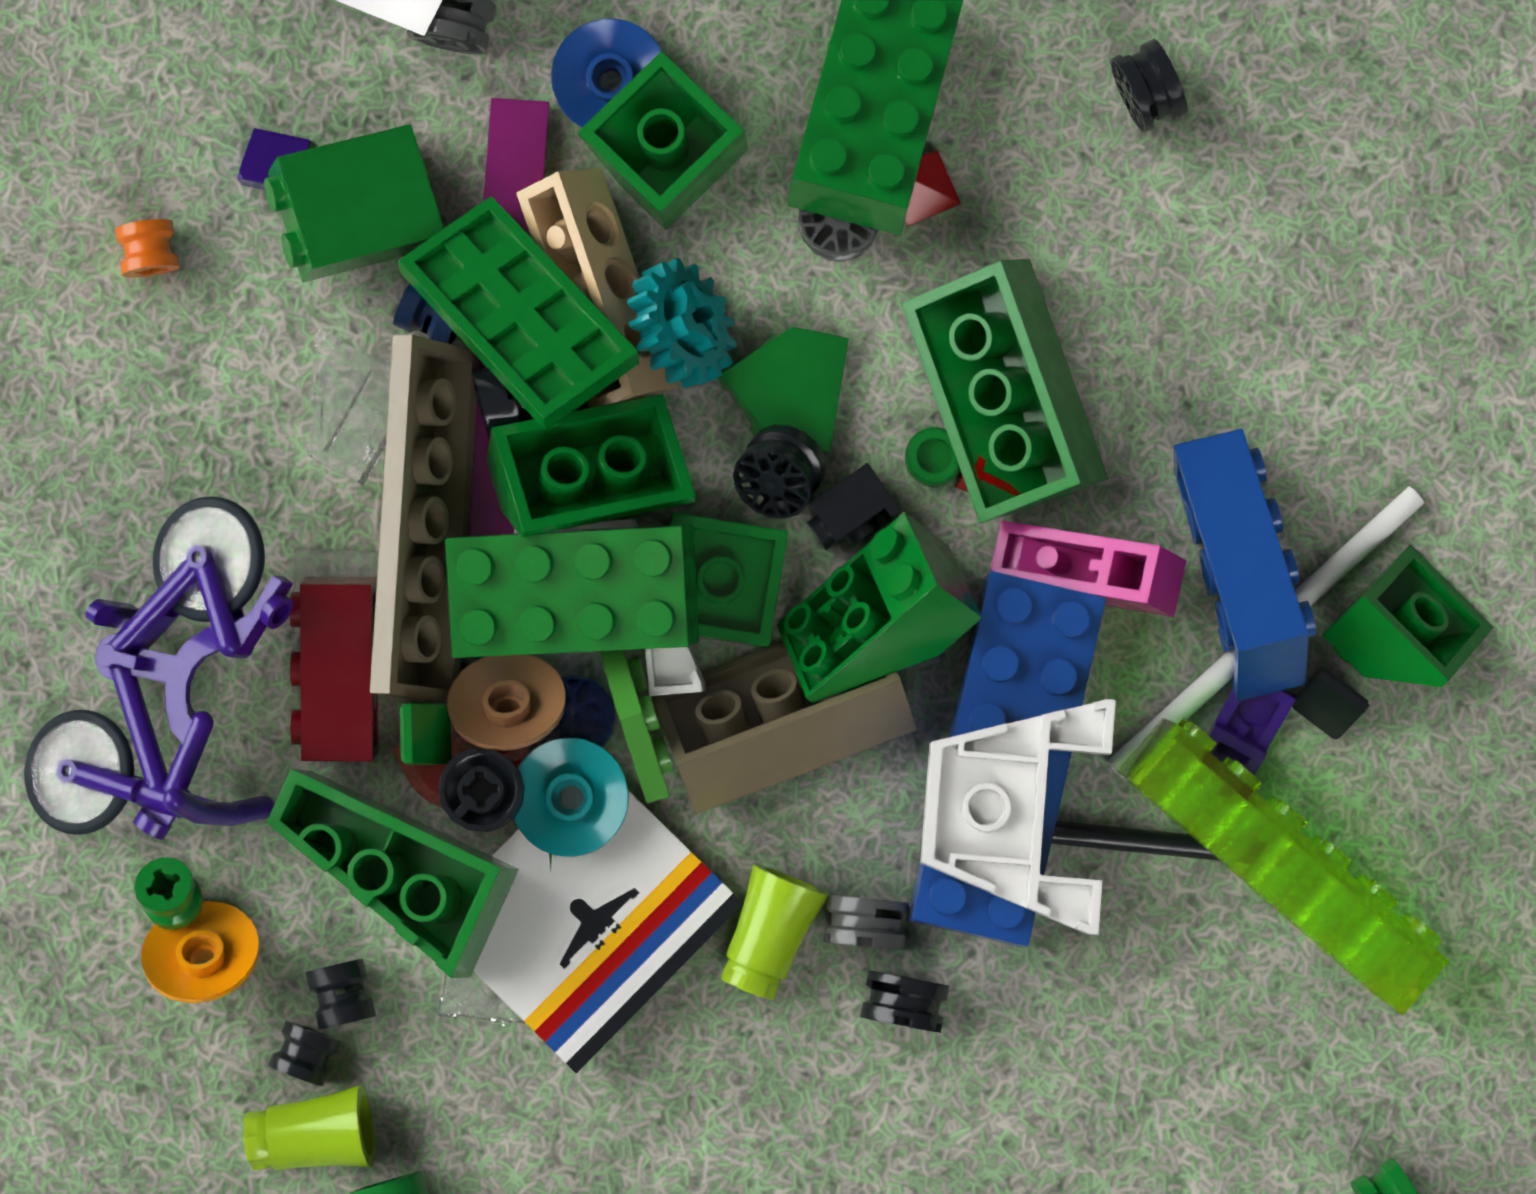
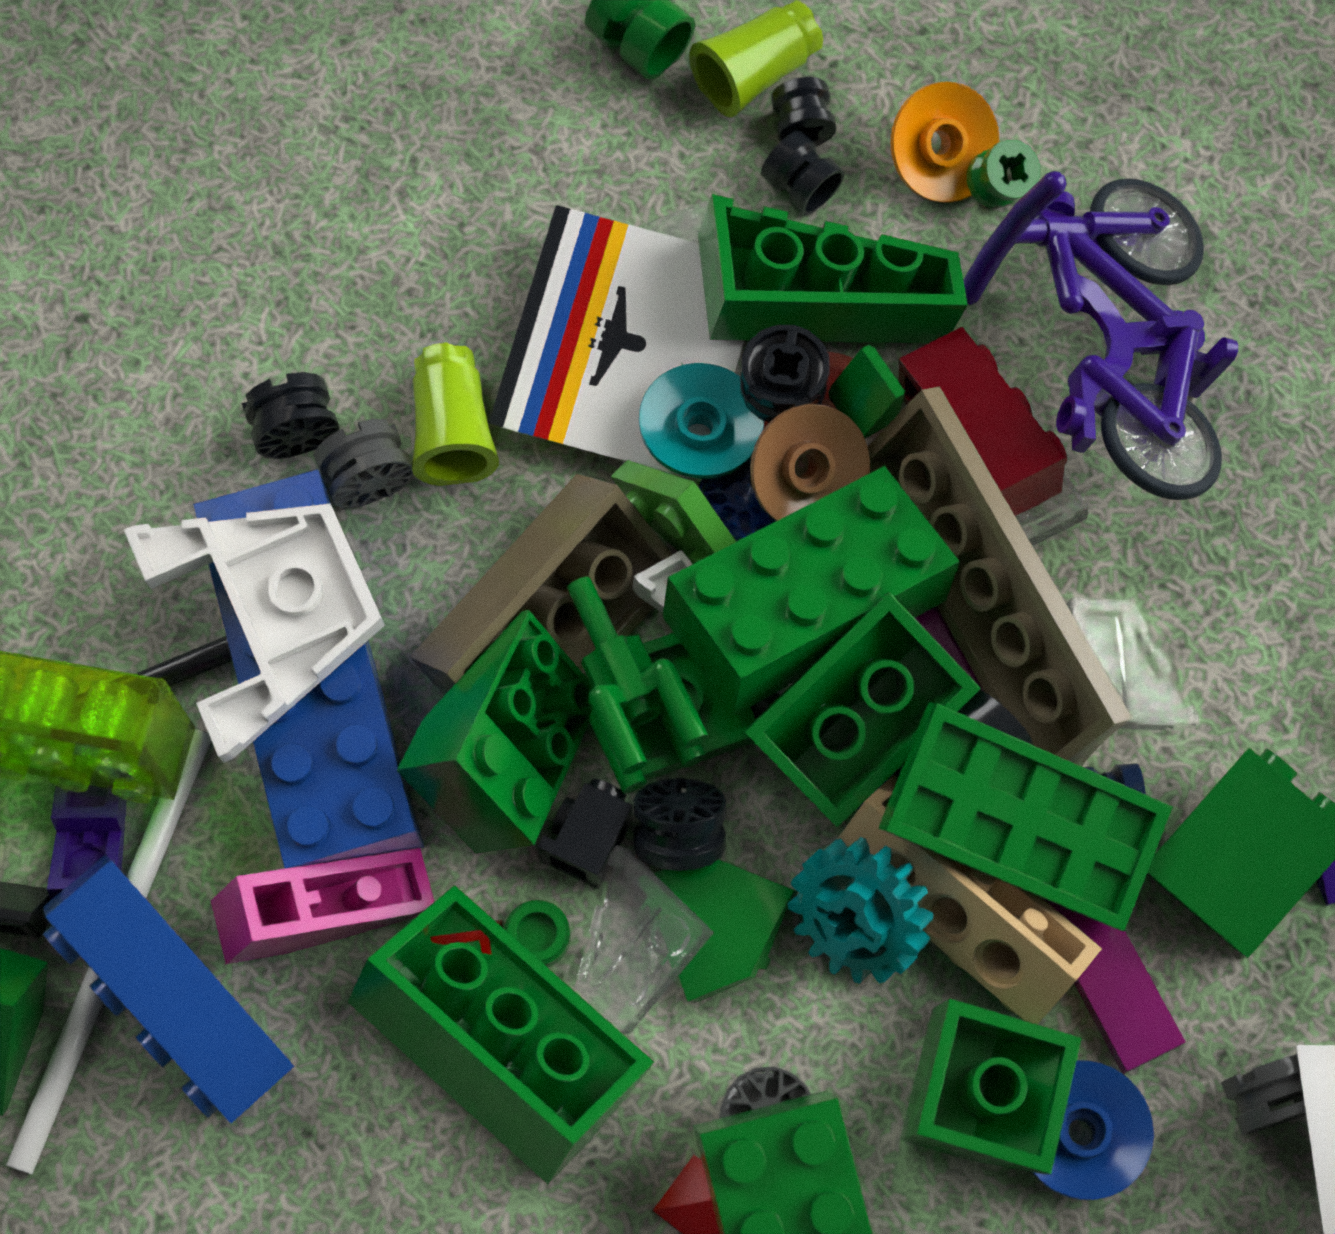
camera: 150 degrees right, 15 degrees down
(761, 592) = (631, 692): none -> green plant
(863, 400) = (637, 943): none -> clear wing

